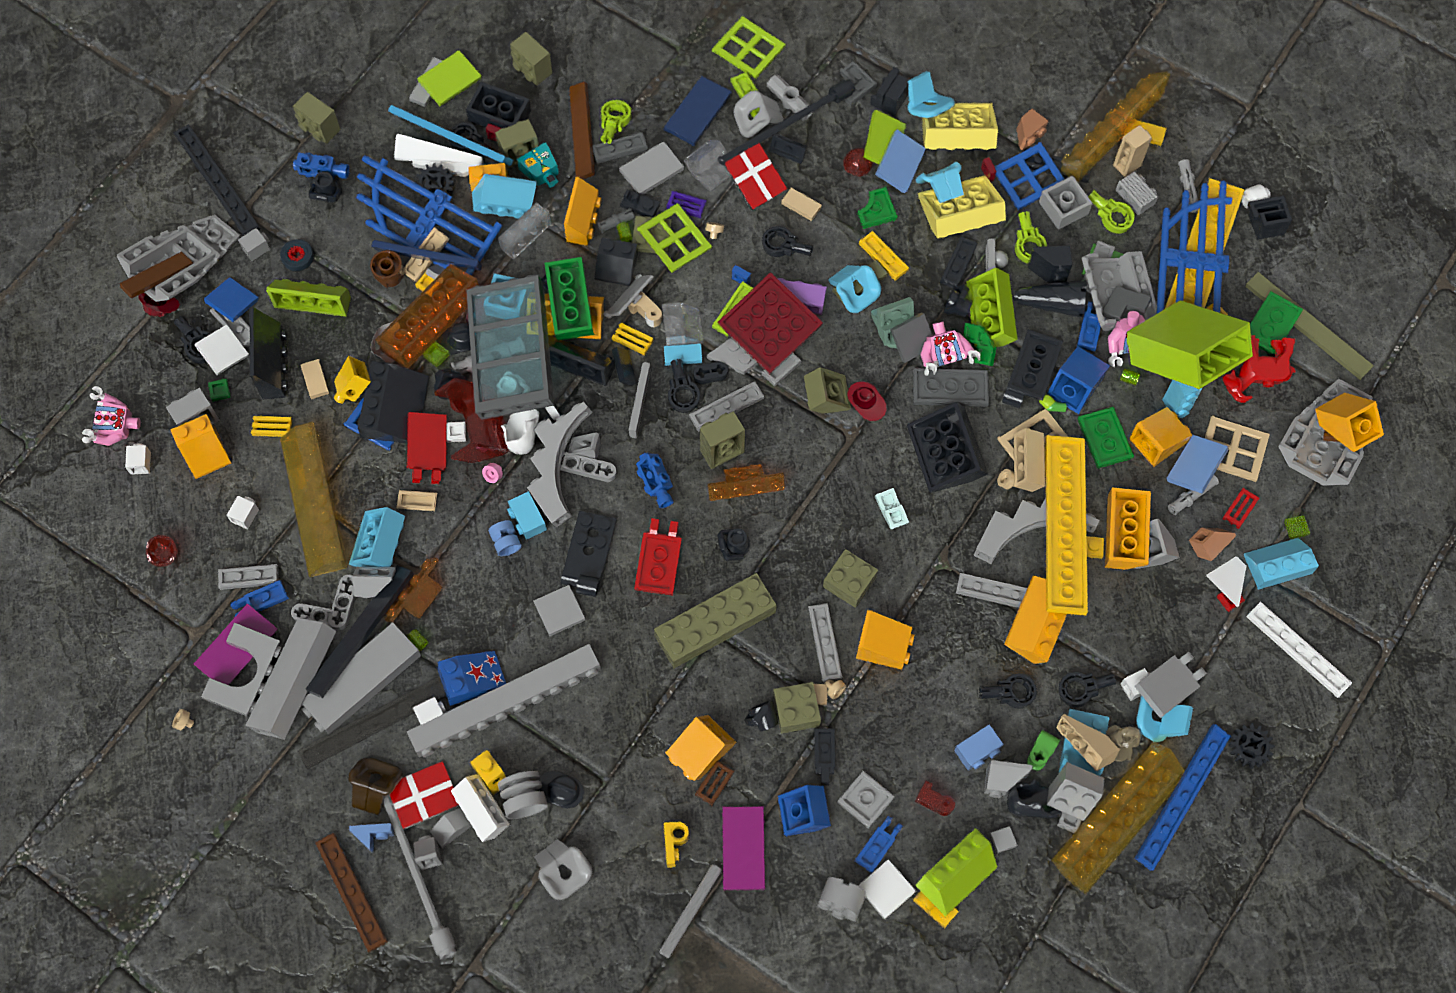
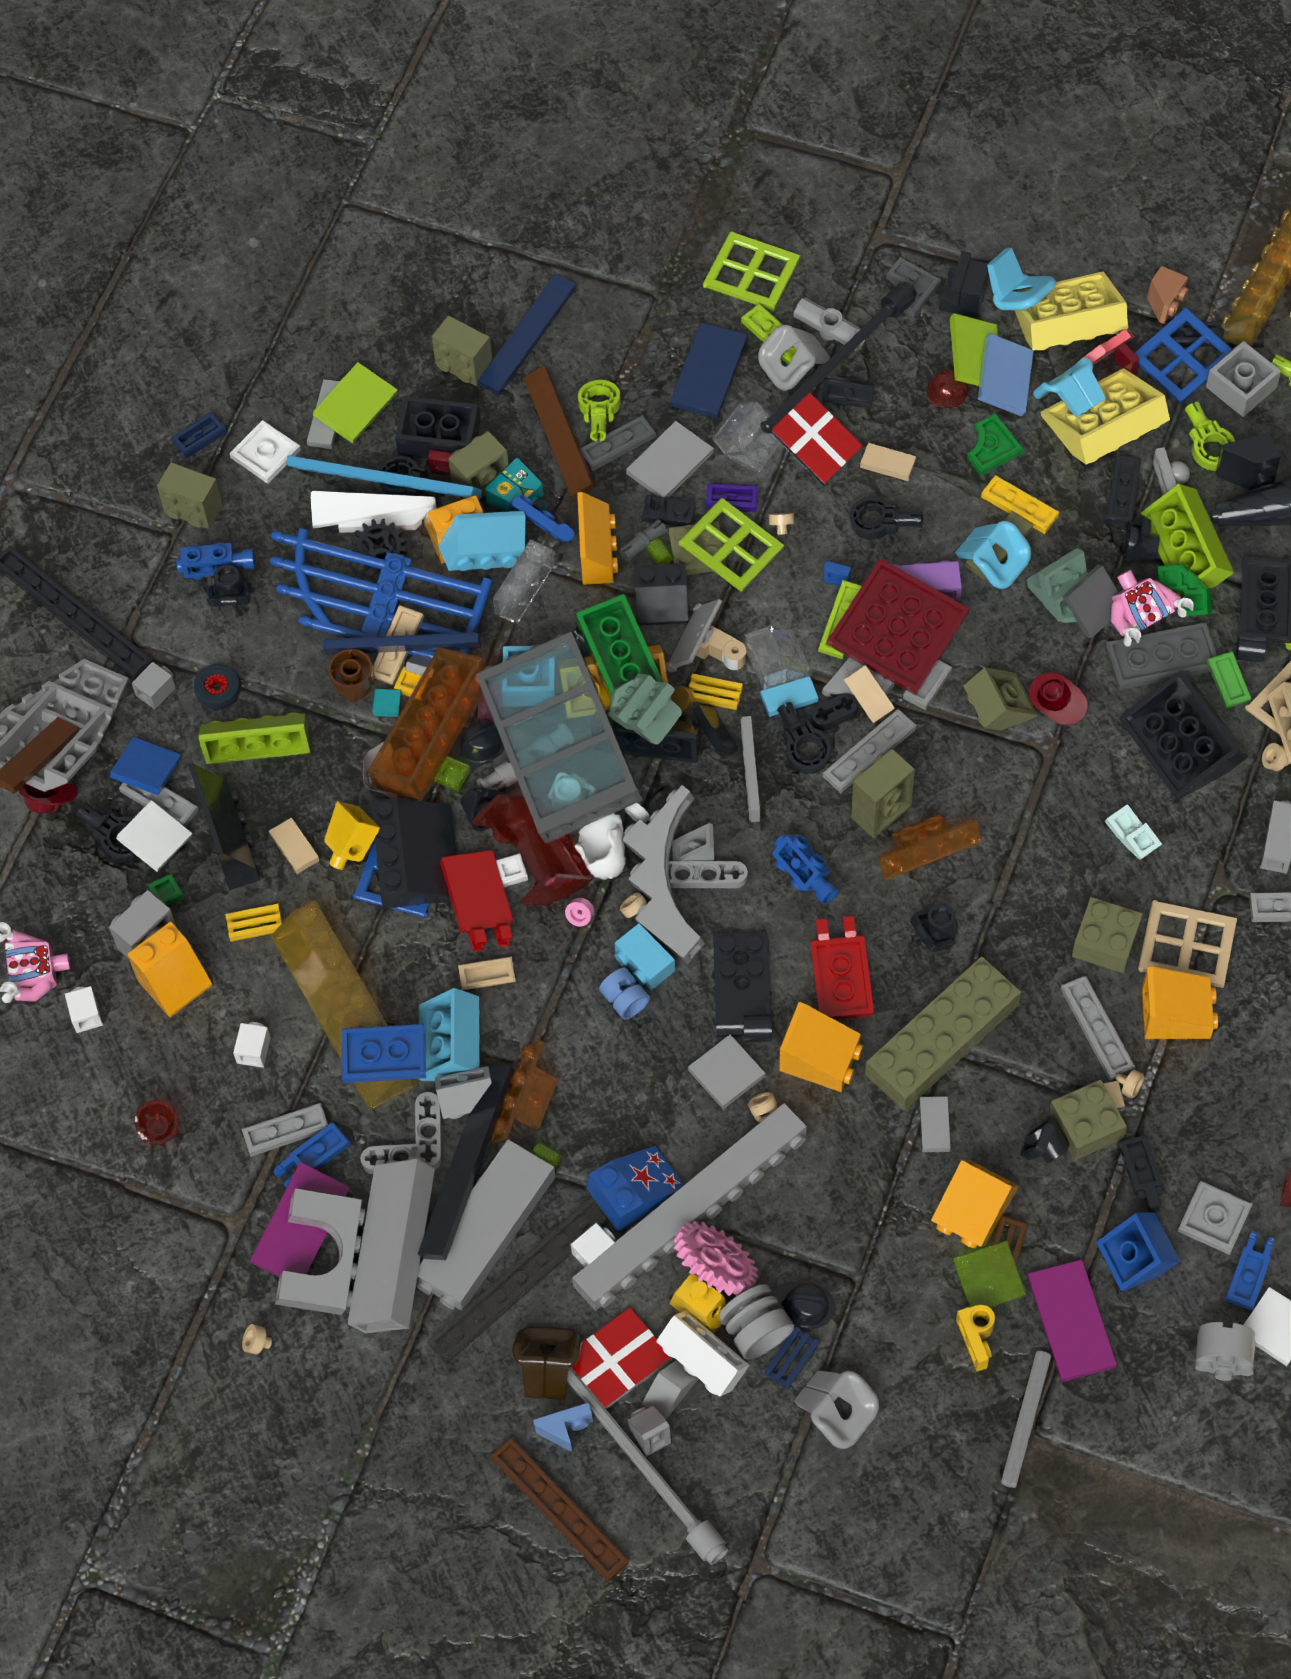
camera: 10 degrees left, 5 degrees down
(324, 541) = (383, 1053): none -> blue tile
(339, 79) = (201, 437): none -> dark blue tile
(379, 97) = (264, 451): none -> white tile
(407, 293) = (387, 703): none -> teal tile
(507, 743) = (715, 1258): none -> bright pink gear
(529, 476) = (632, 904): none -> tan tile
(550, 189) = (542, 519): none -> blue hinge
(555, 813) = (804, 1338): none -> dark blue tile
(572, 341) = (645, 707): none -> sand green piece
(576, 640) = (761, 1105): none -> tan tile
(581, 57) = (527, 334): none -> dark blue tile
(606, 338) = (683, 698): none -> pearl gold tile
(625, 610) = (819, 1049): none -> light orange slope
(691, 683) = (934, 1124): none -> light grey tile
(695, 802) = (989, 1276): none -> clear neon green tile
(737, 366) = (869, 694): none -> tan tile
(906, 597) = (1187, 943): none -> tan window
(978, 158) = (1110, 346): none -> coral tile
(991, 415) = (1228, 680): none -> bright green tile

